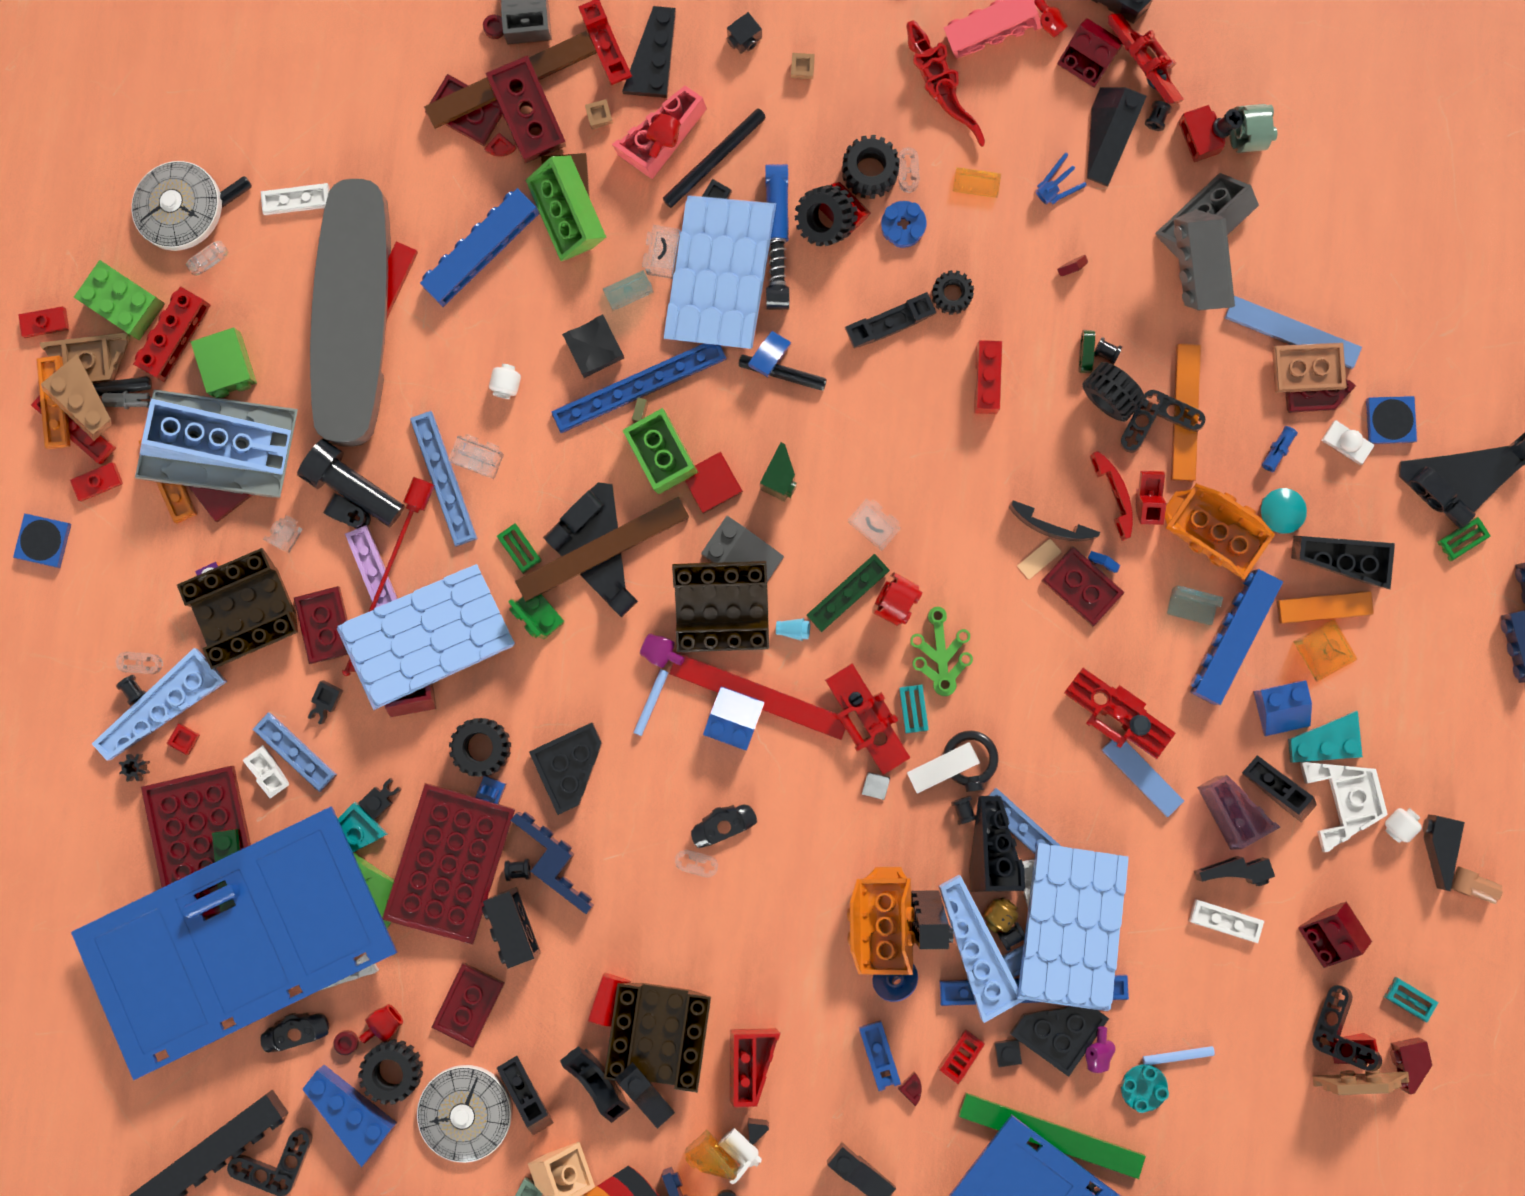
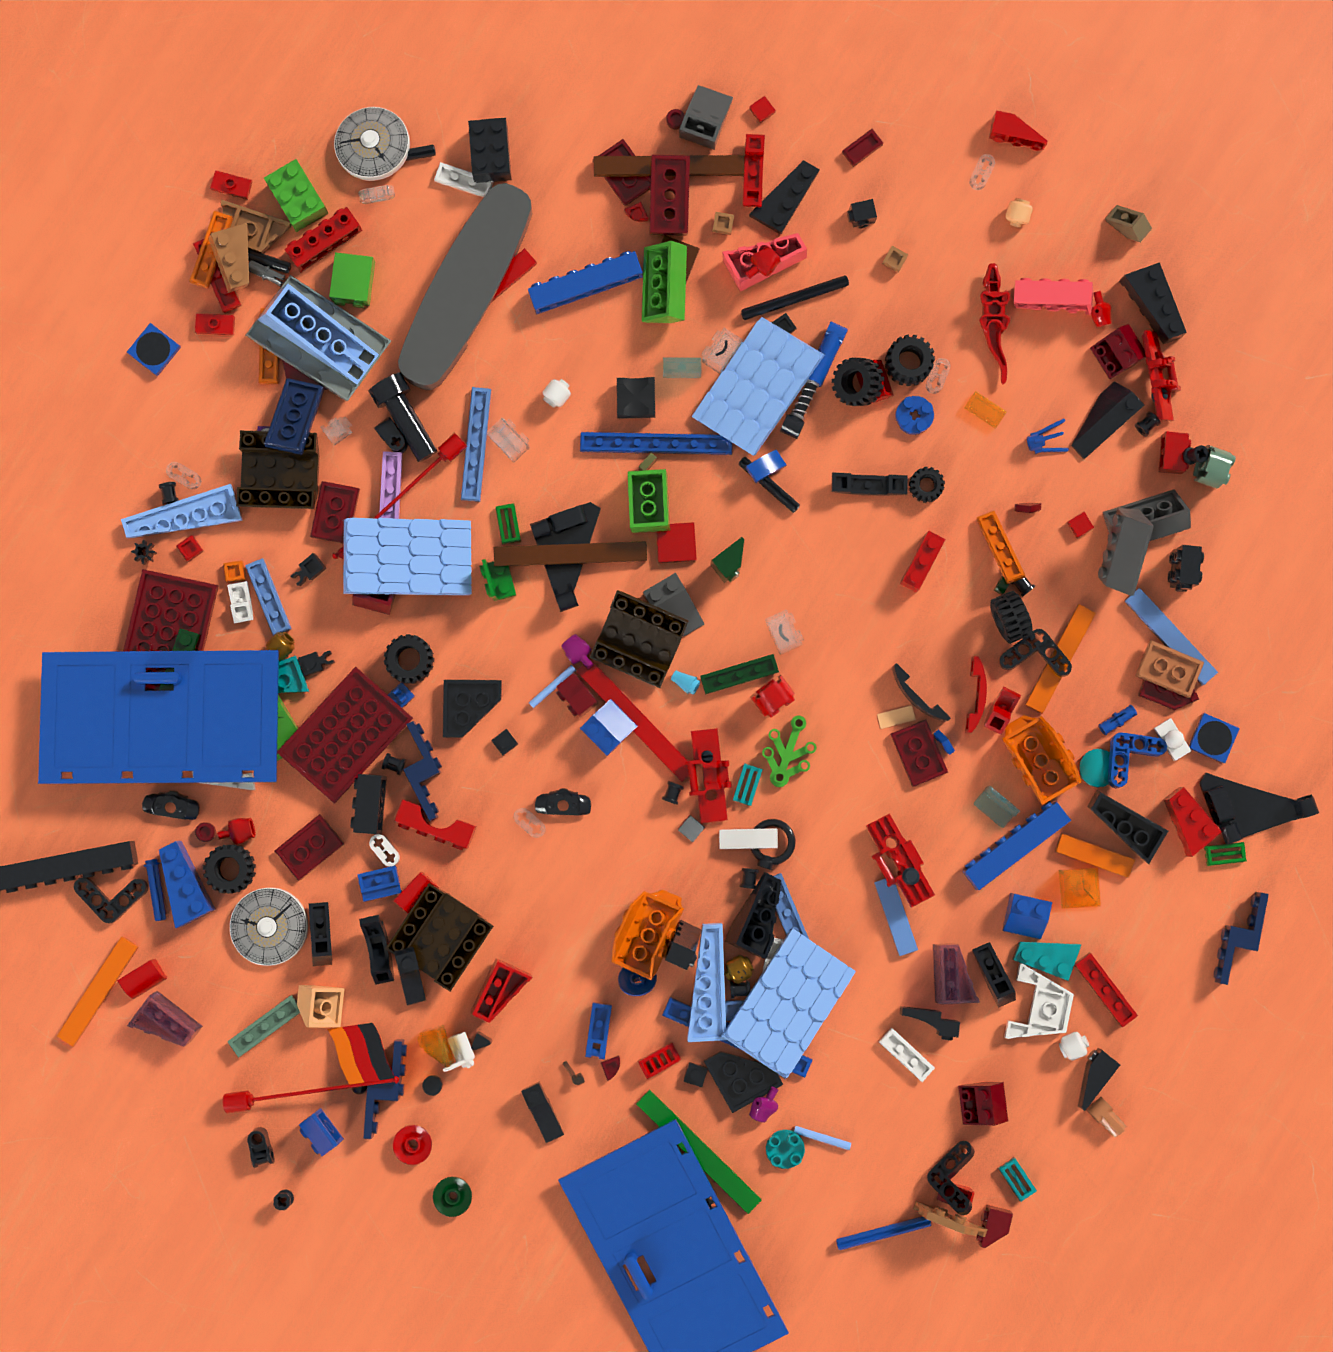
camera: 15 degrees right, 0 degrees up
(229, 541) = (294, 416): none -> dark blue tile
(244, 741) = (234, 571): none -> orange tile
(308, 152) = (489, 150): none -> black brick
(320, 1132) = (155, 889): none -> blue axle
(333, 795) = (283, 643): none -> pearl gold head
(549, 974) = (381, 853): none -> white beam
(563, 1008) = (379, 883): none -> blue plate
(564, 917) = (412, 816): none -> red arch
(627, 788) = (504, 742): none -> black plate
(682, 700) = (577, 695): none -> dark red brick
(837, 756) = (672, 793): none -> black bush
(881, 1119) = (576, 1079): none -> clear smoke hand
(1065, 322) = (1000, 547): none -> orange tile
(1138, 258) = (1080, 524): none -> red tile
(1275, 250) = (1185, 567): none -> black brick
(1293, 1129) = (882, 1232): none -> blue axle
(1302, 479) = (1125, 749): none -> blue beam
(1407, 747) = (1106, 989): none -> red plate
(1411, 521) = (1191, 821): none -> red wedge

